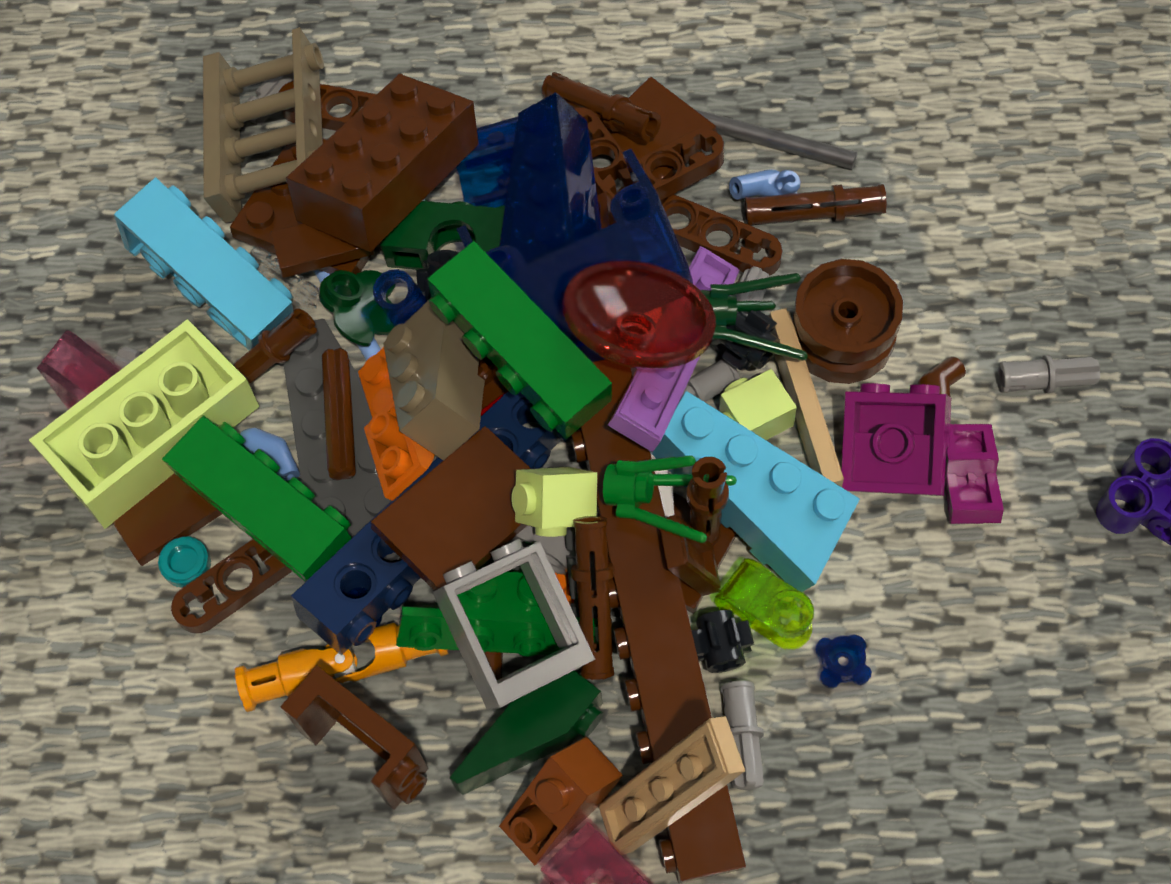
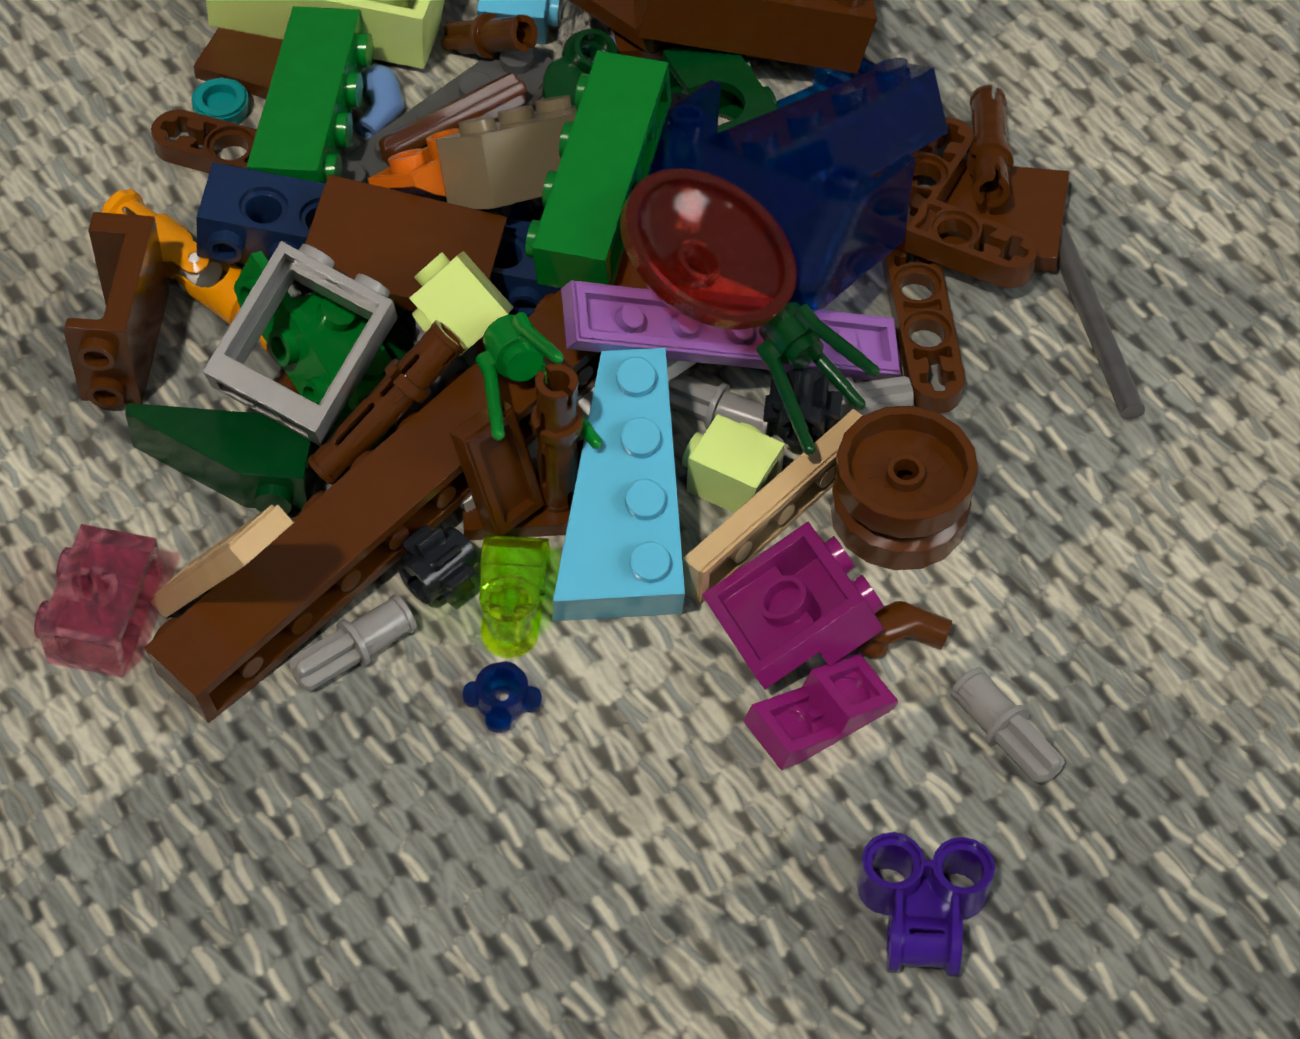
camera: 50 degrees right, 10 degrees down
(560, 798) = (179, 506): dark orange slope -> none
(764, 183) = (1032, 348): medium blue arm -> none
(869, 199) = (1087, 443): reddish brown pin -> none

